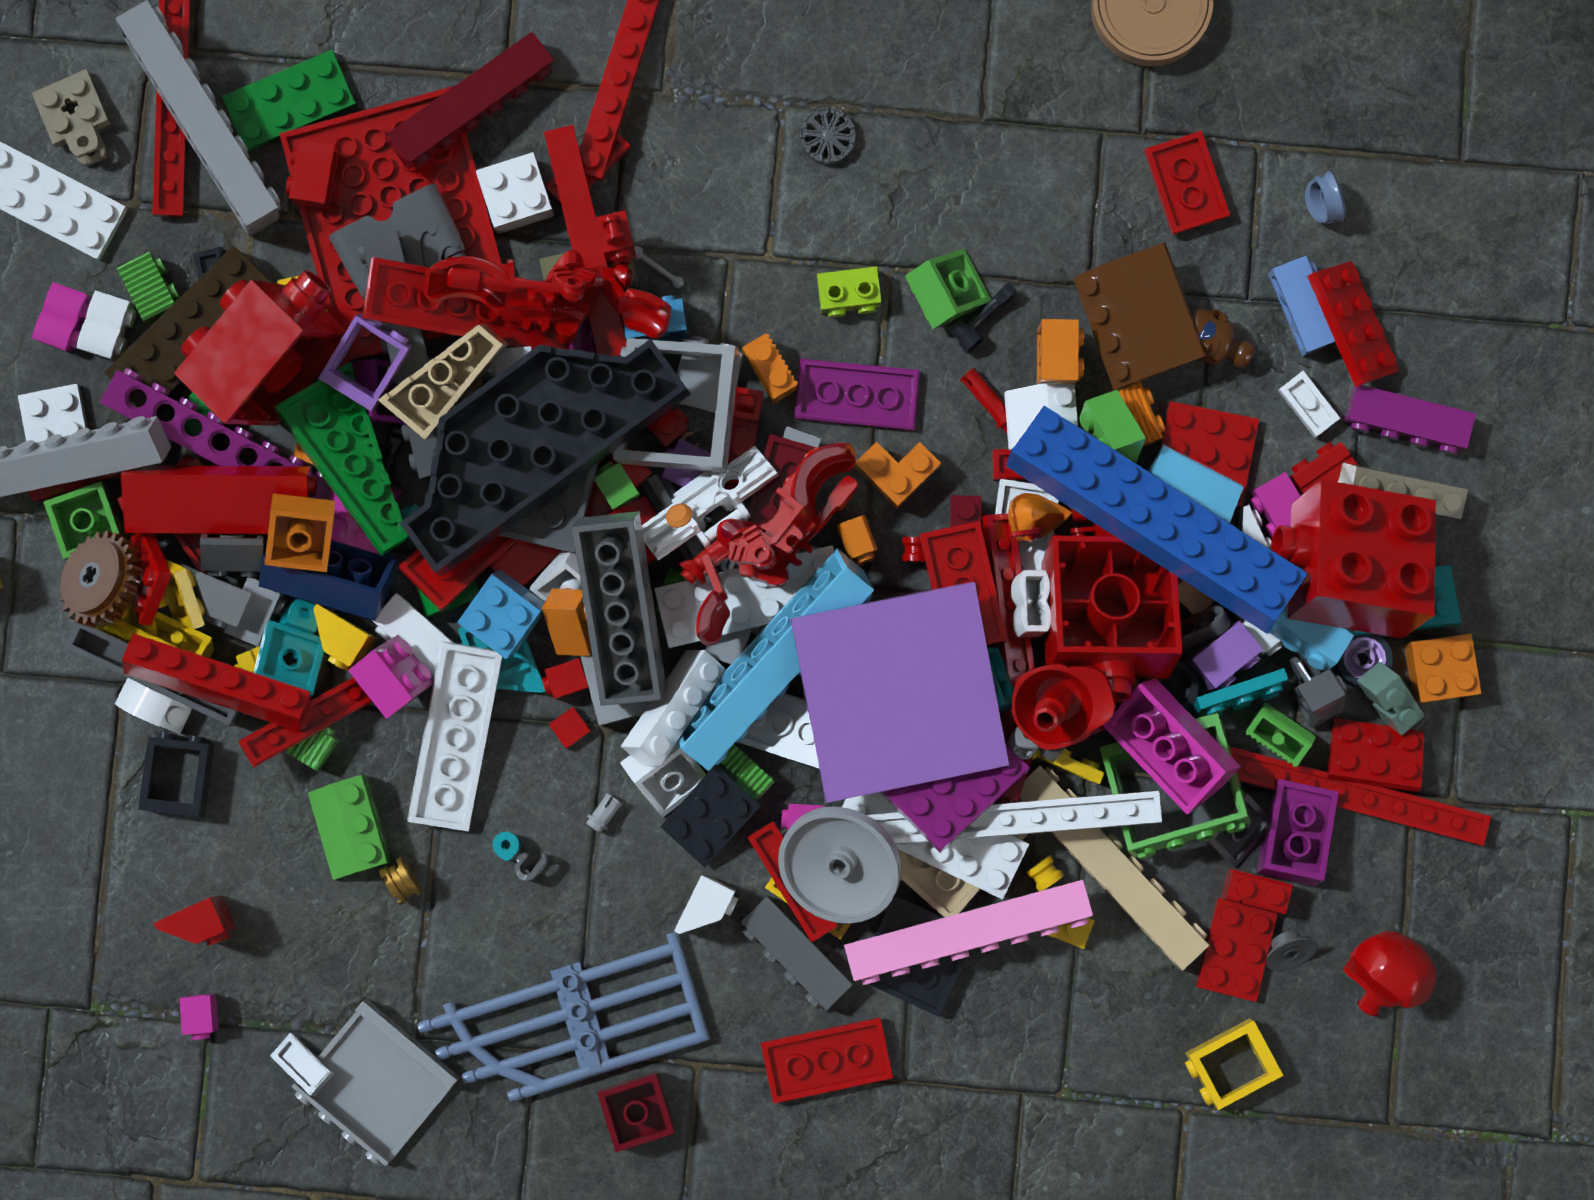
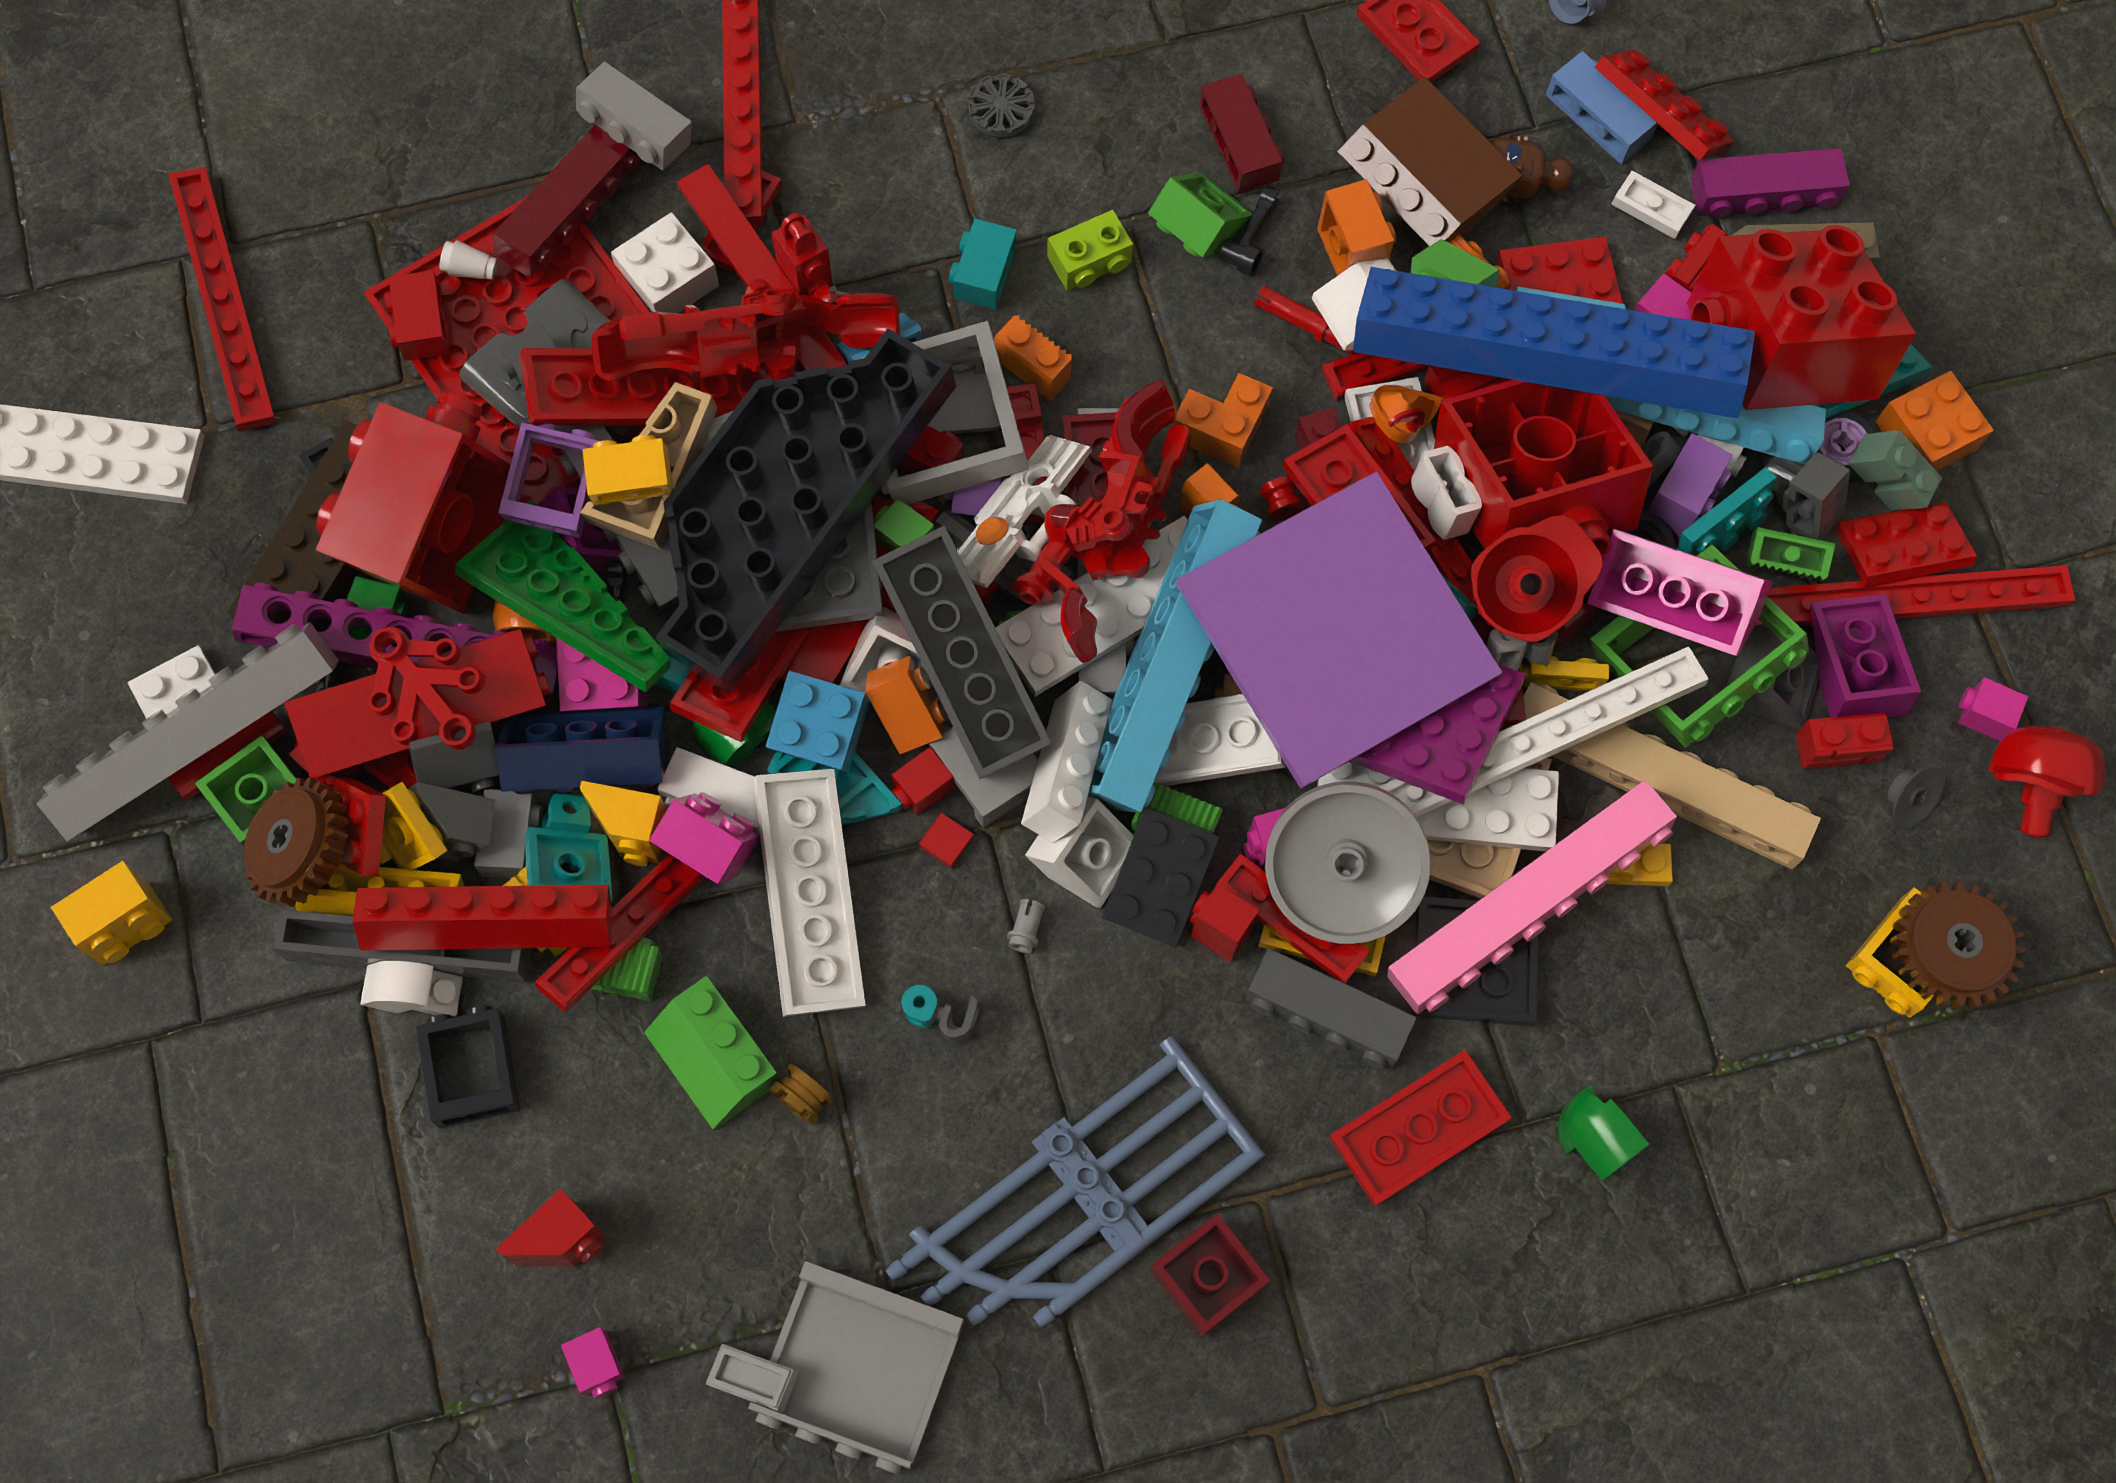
camera: 25 degrees left, 15 degrees down
(61, 317) = (158, 575): dark pink brick -> none
(81, 127) = (117, 363): dark tan plate -> none
(106, 326) = (215, 566): white brick -> none
(148, 286) = (253, 503): bright green brick -> none
(196, 115) = (261, 295): light grey brick -> none
(219, 496) = (418, 682): none -> red plant
(289, 100) = (360, 257): green plate -> none
(299, 532) = (534, 696): orange brick -> none
(364, 139) = (466, 261): none -> white cone
(420, 385) = (627, 470): none -> yellow brick
(527, 62) = (633, 116): none -> light grey brick
(707, 904) = (1200, 980): white slope -> none
(741, 866) = (1222, 921): none -> red brick
(762, 273) = (983, 264): none -> teal brick
(857, 394) = (1127, 358): magenta tile -> none
(945, 1114) = (1598, 1132): none -> green brick
(1007, 228) = (1241, 132): none -> dark red brick
(1044, 873) = (1586, 806): yellow wheel -> none
(1236, 949) = (1855, 822): red plate -> none
(1280, 1088) = (1965, 974): none -> reddish brown gear
(1379, 905) = (1991, 708): none -> dark pink brick

